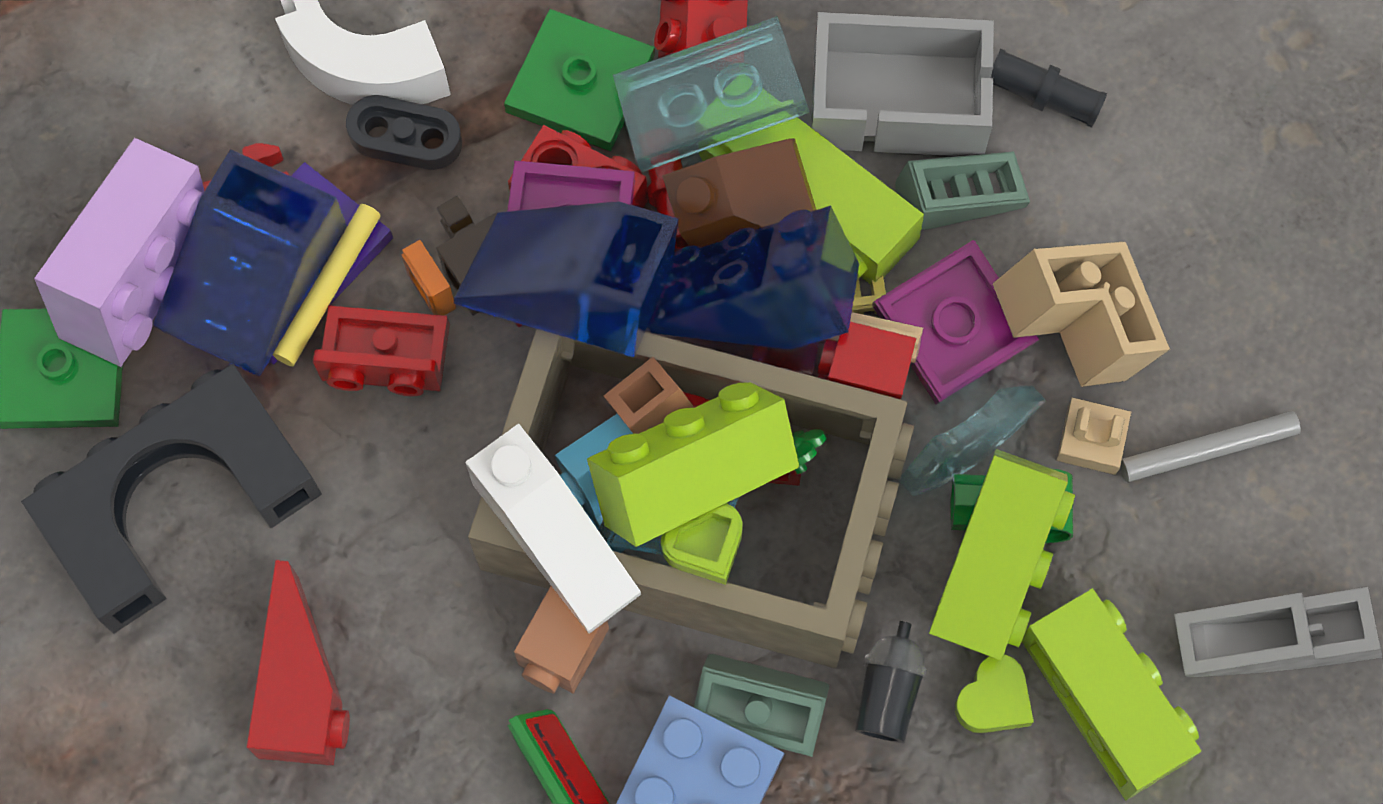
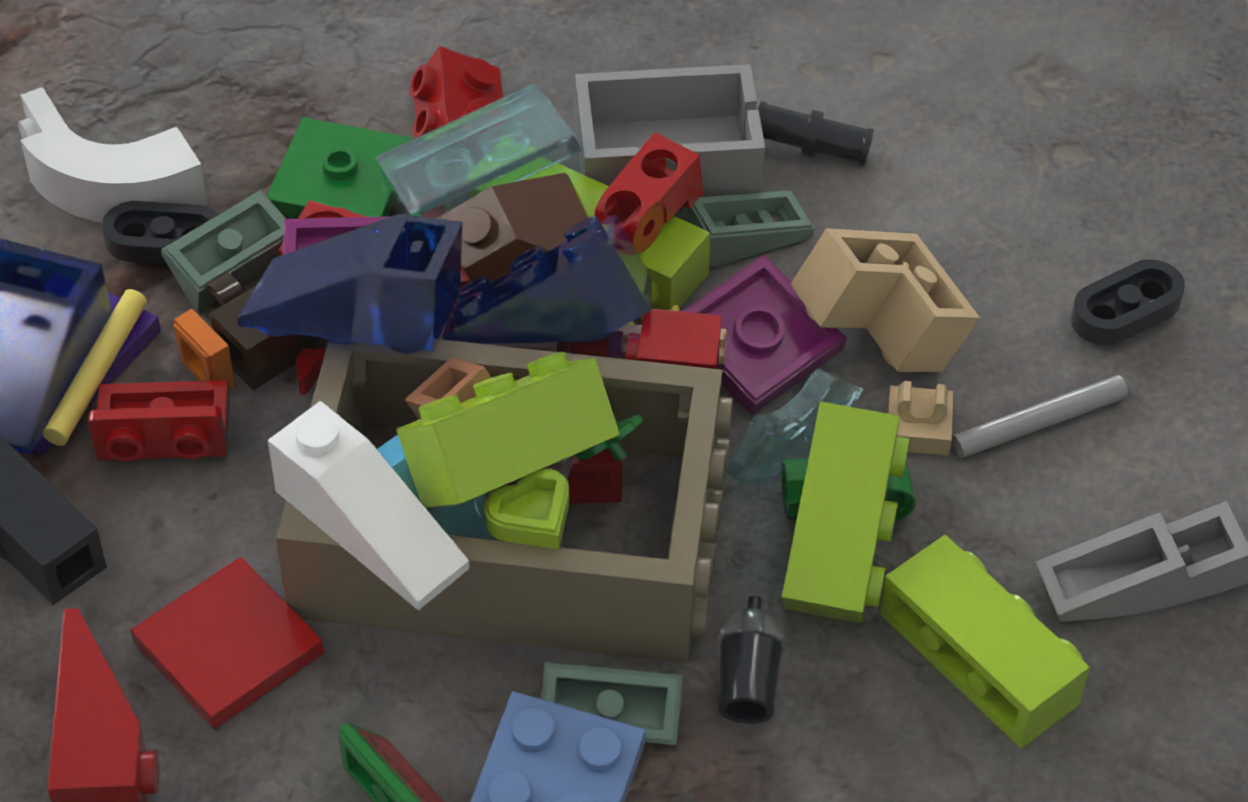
camera: 10 degrees left, 20 degrees down
(422, 594) = (227, 642): none -> red tile
(463, 162) = (233, 242): none -> sand green slope
(557, 646) = (386, 659): nougat brick -> none
(869, 172) = (649, 192): none -> red leg
(995, 698) = (863, 664): lime tile -> none
(1316, 331) = (1118, 305): none -> black plate

